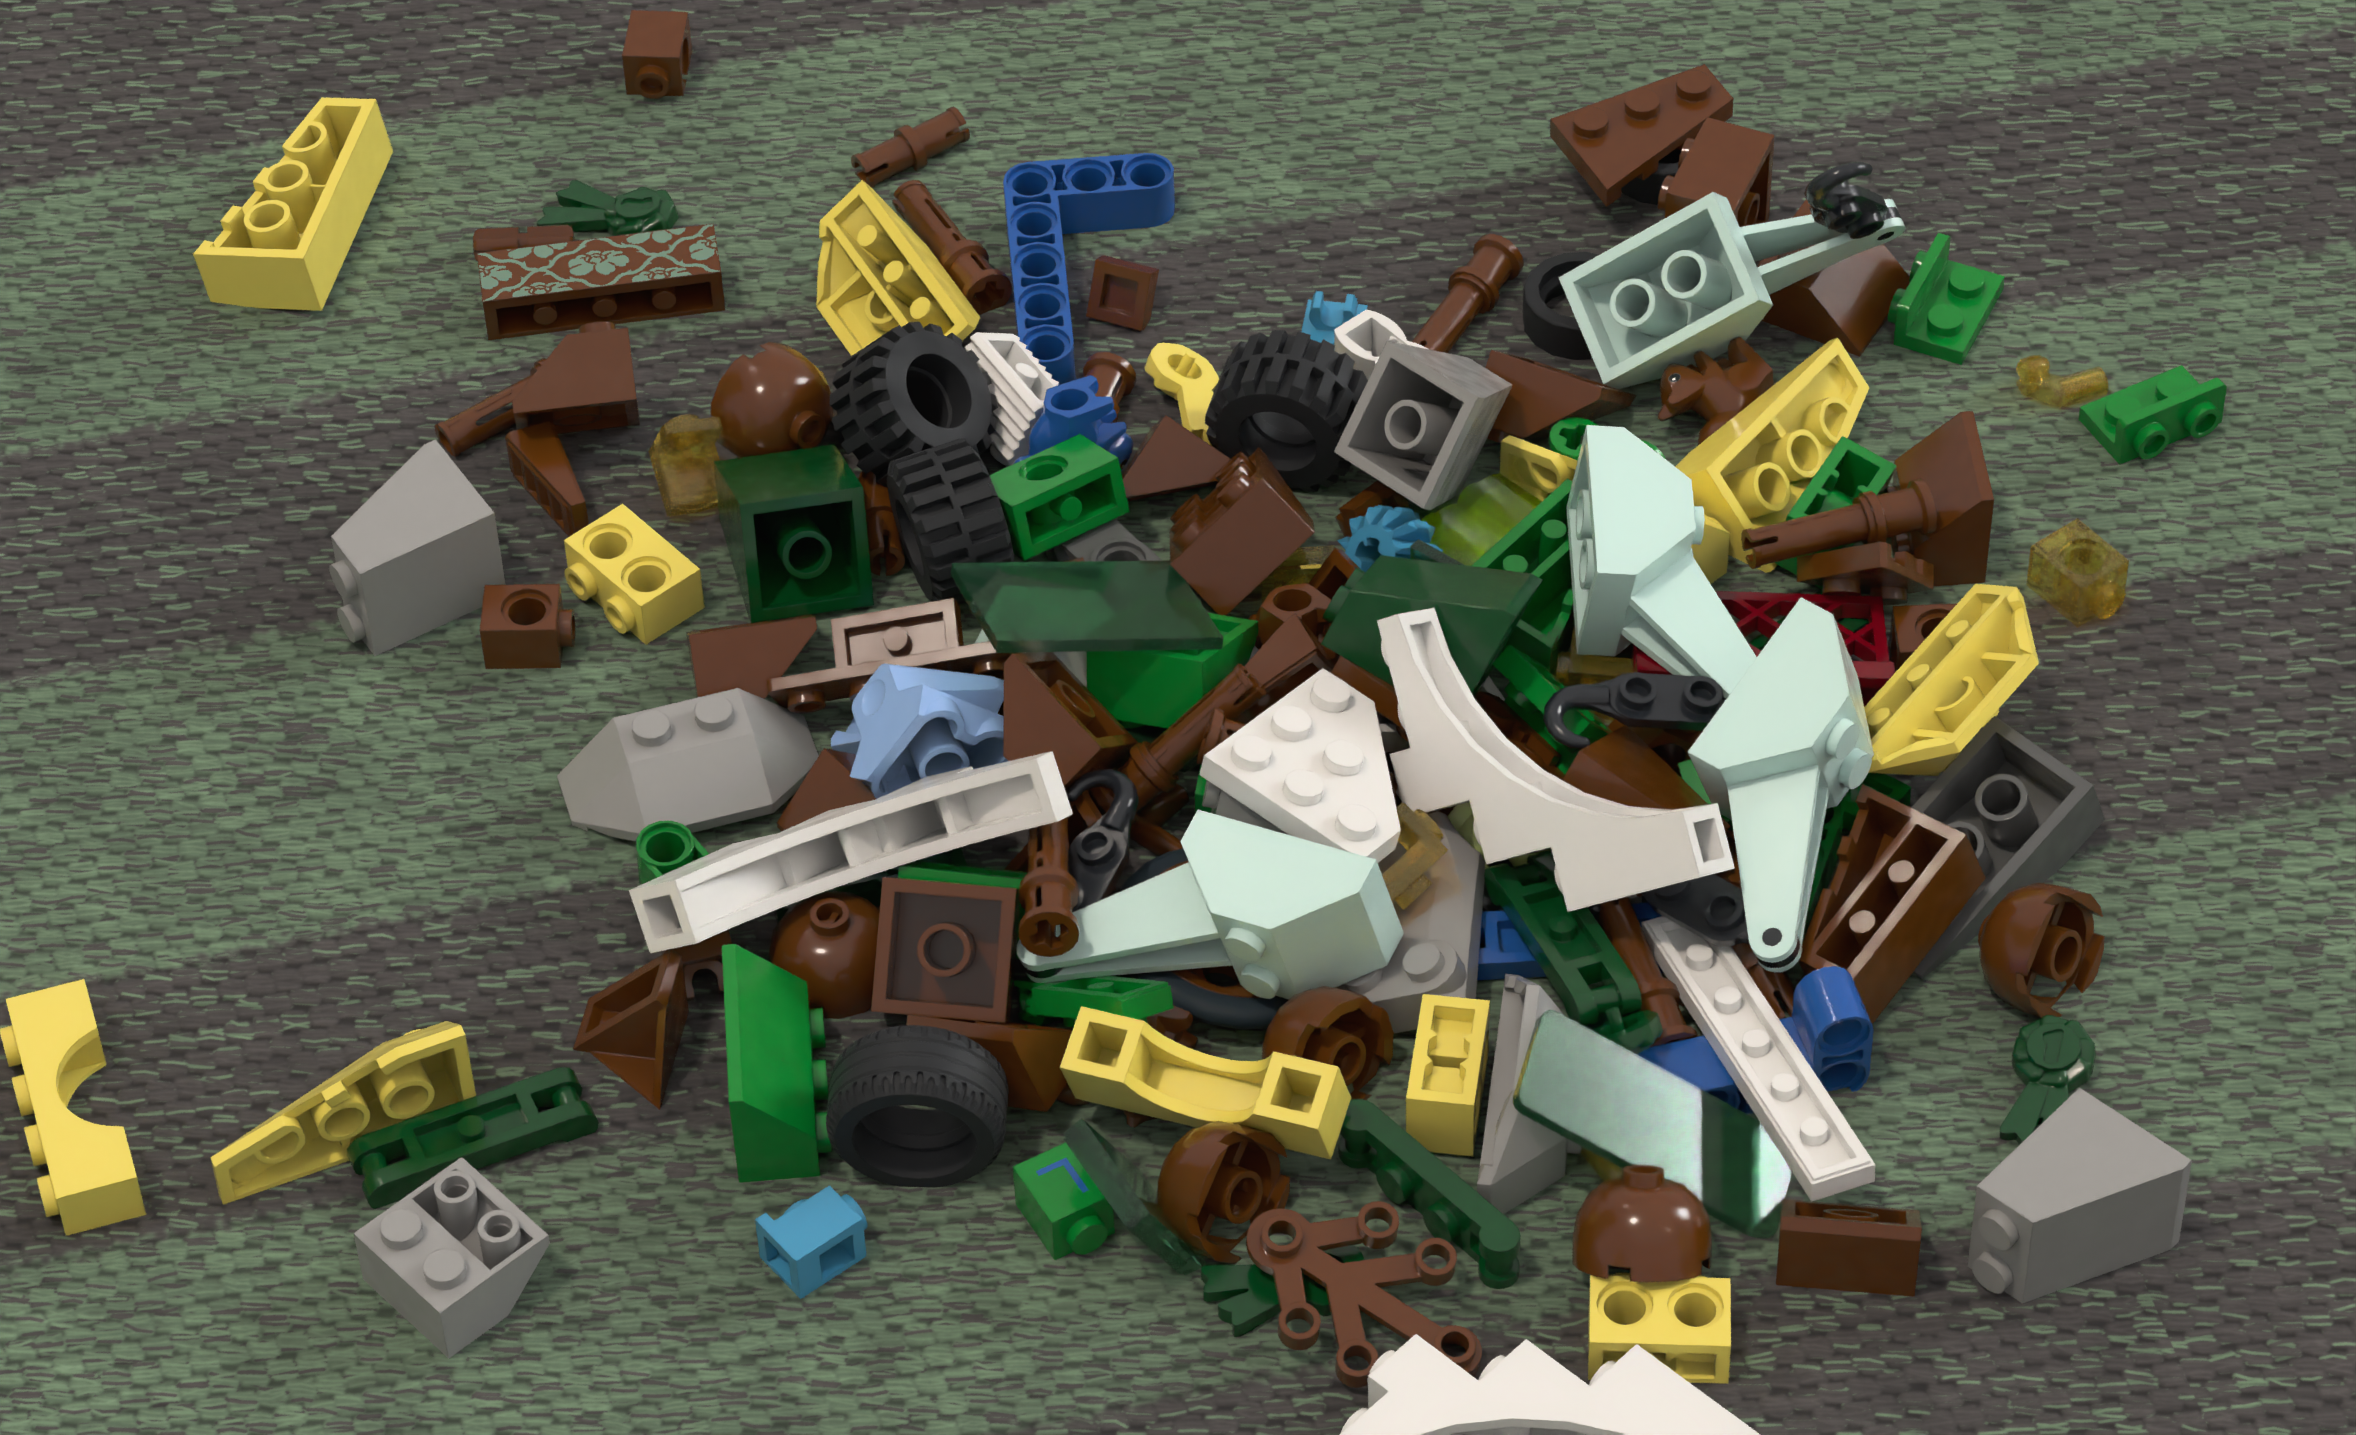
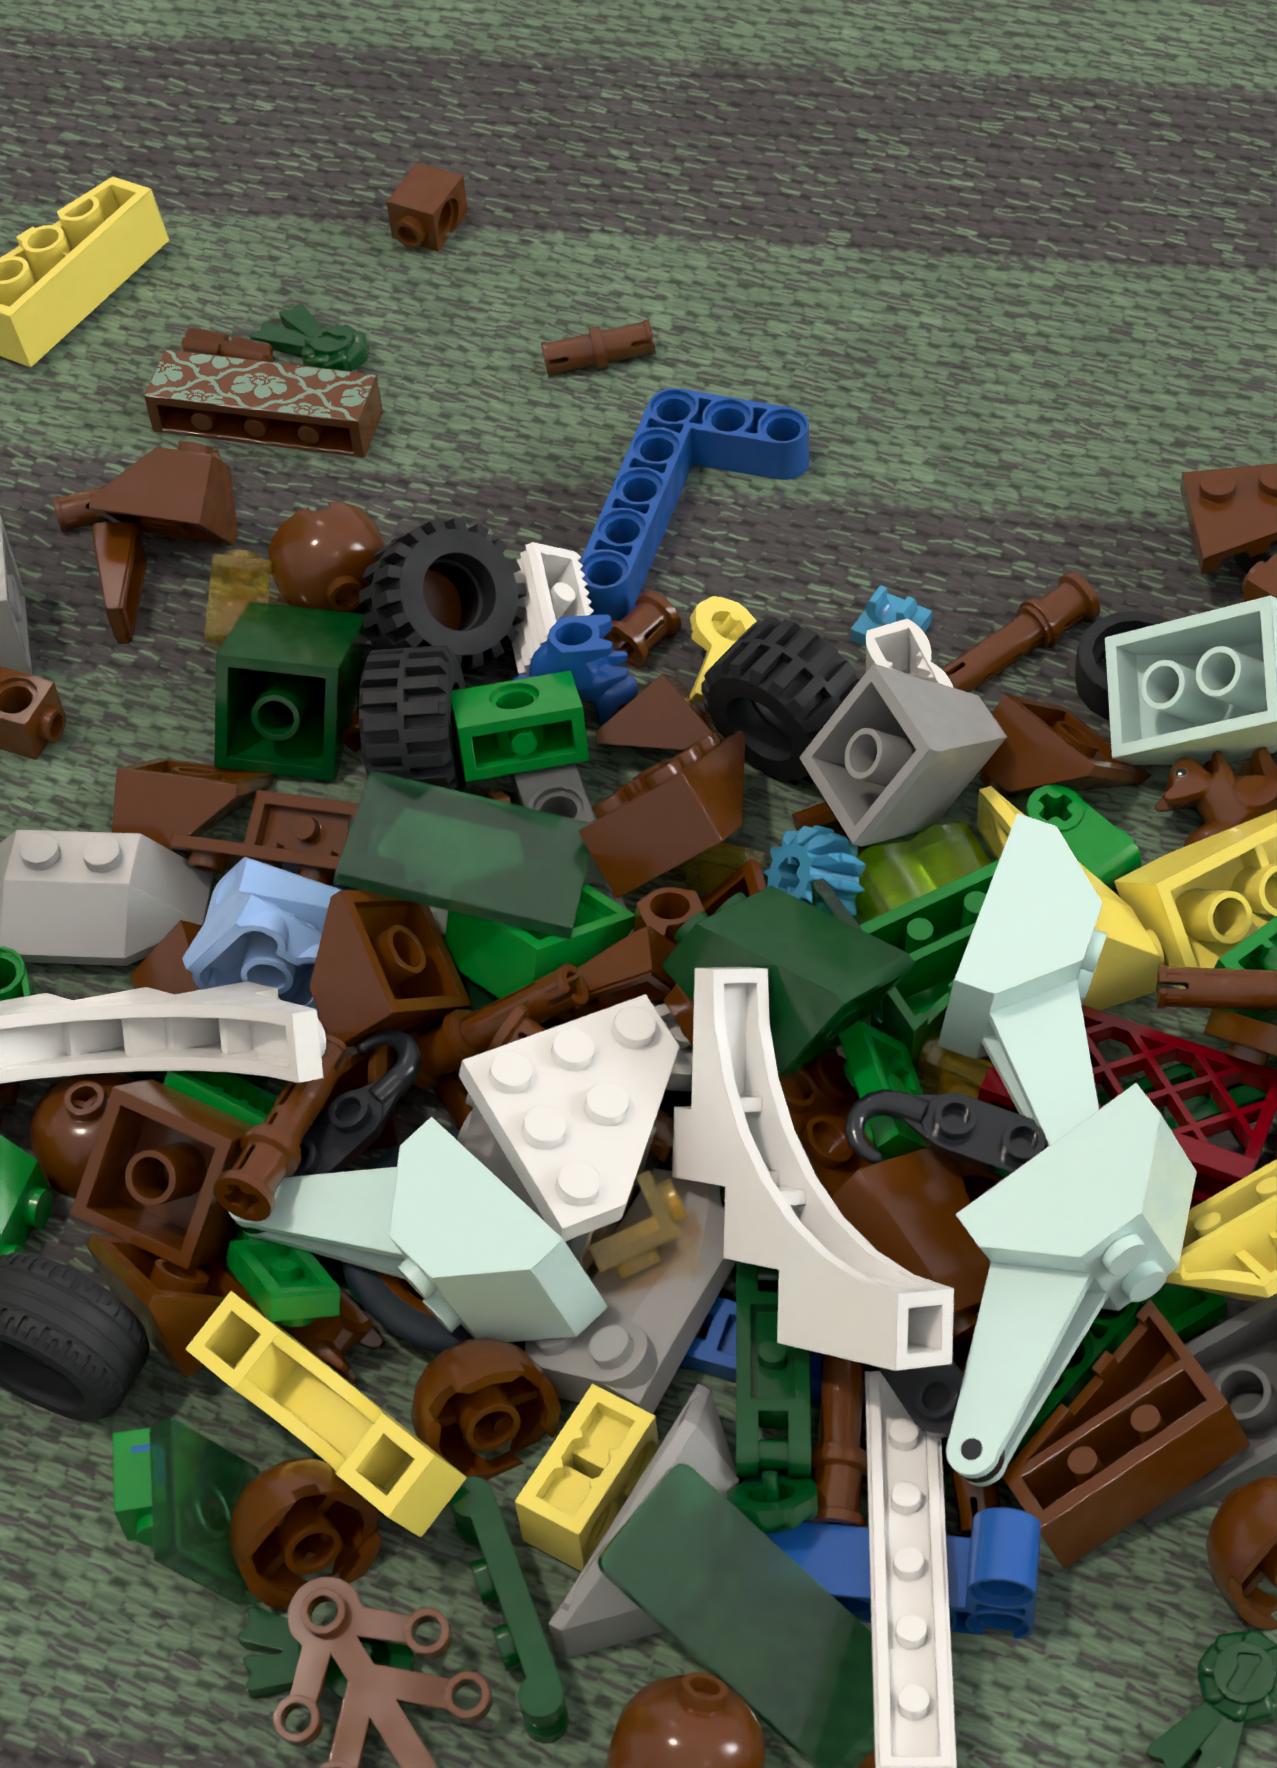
camera: 25 degrees right, 5 degrees up
(633, 575) = (135, 690): light yellow brick -> none
(882, 275) = (506, 467): light yellow wedge -> none
(962, 258) = (585, 467): reddish brown pin -> none
(1122, 292) = (711, 537): reddish brown tile -> none

